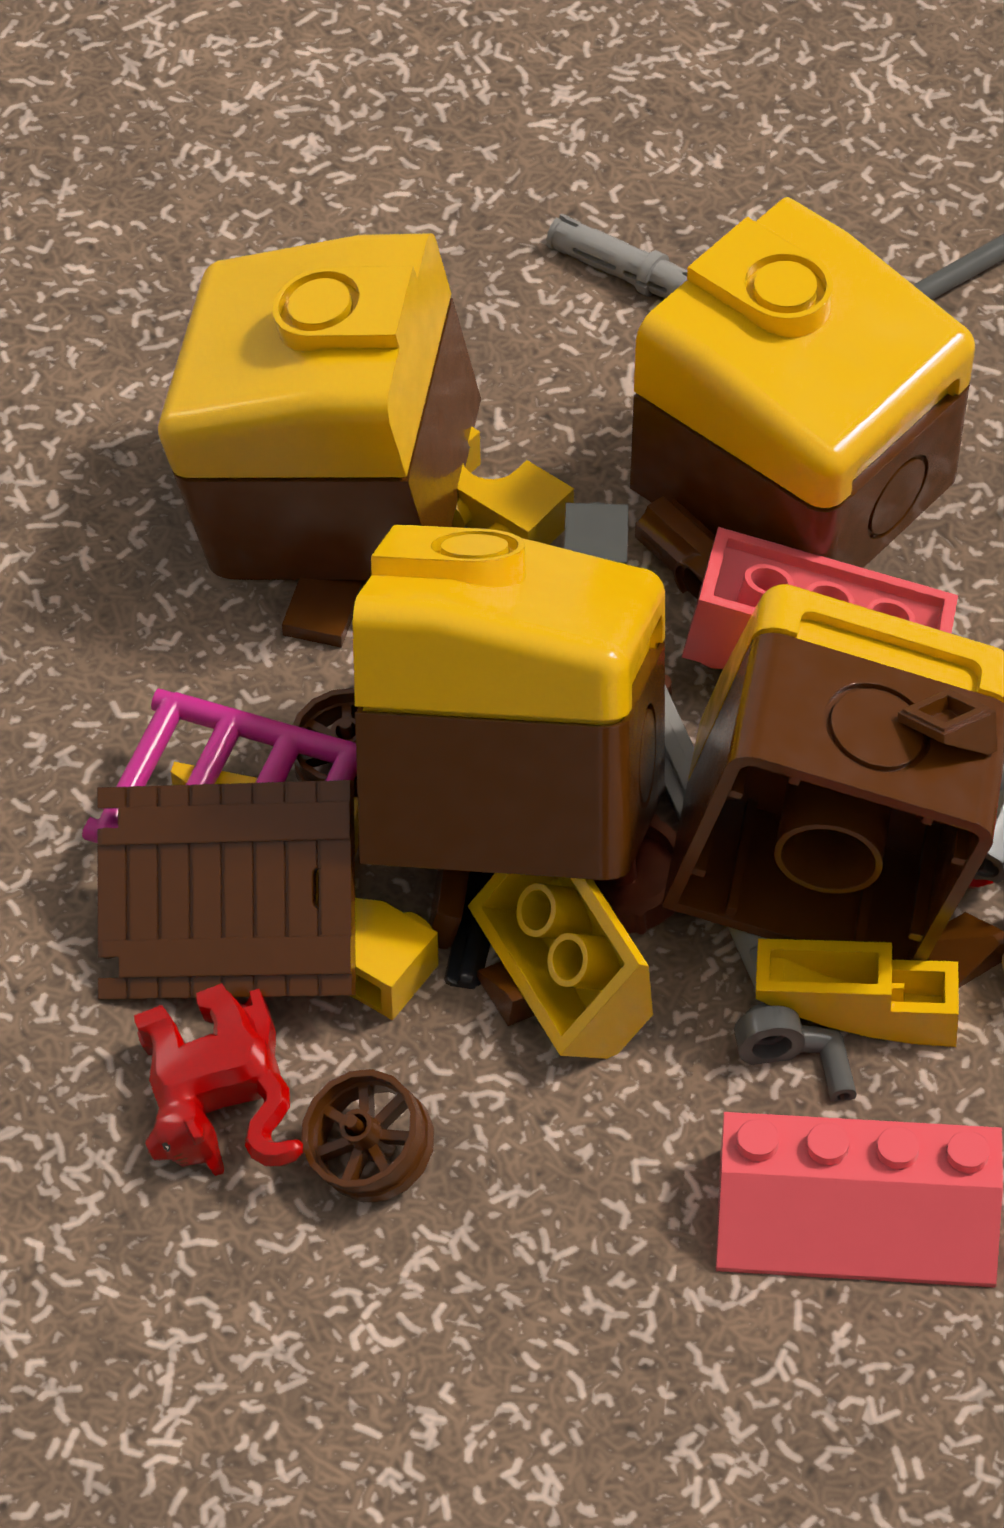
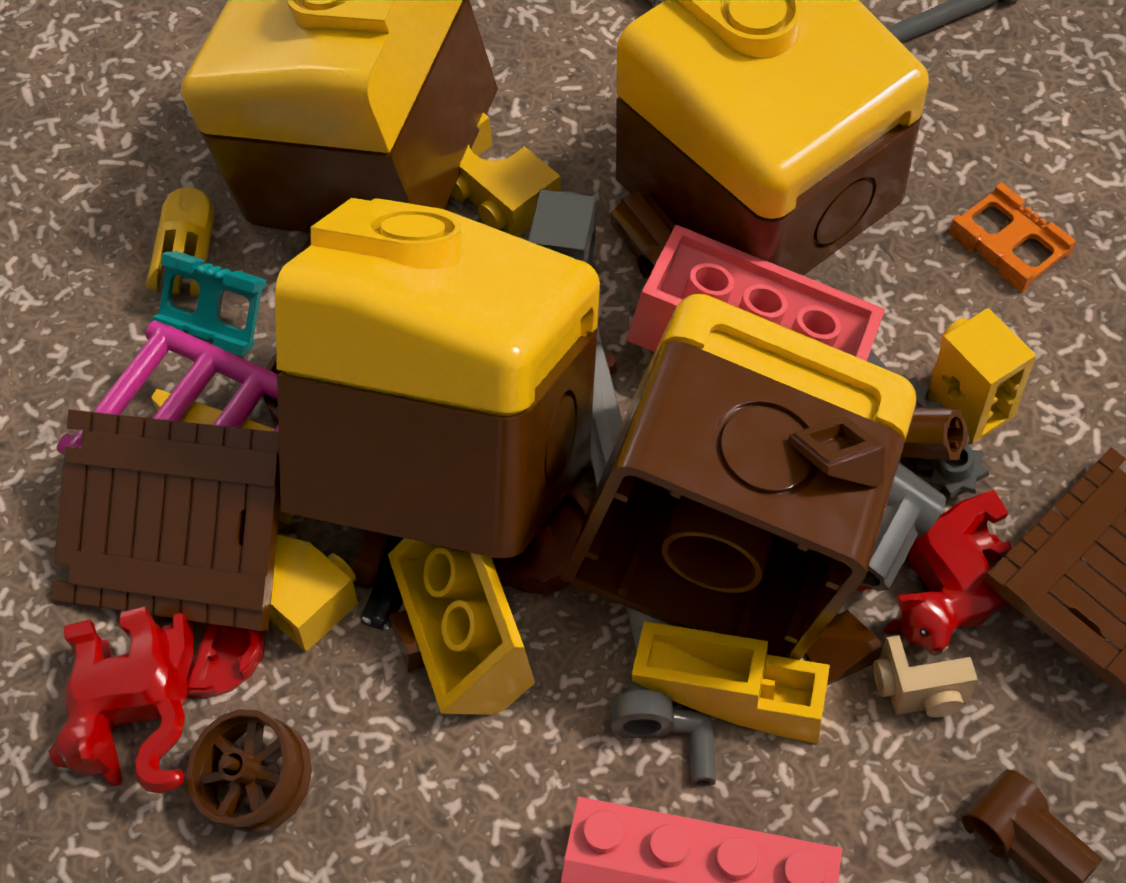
camera: 10 degrees right, 5 degrees up
(151, 596) = (183, 227): none -> yellow arm
(206, 645) = (212, 283): none -> teal piece
(309, 1033) = (225, 660): none -> red tile

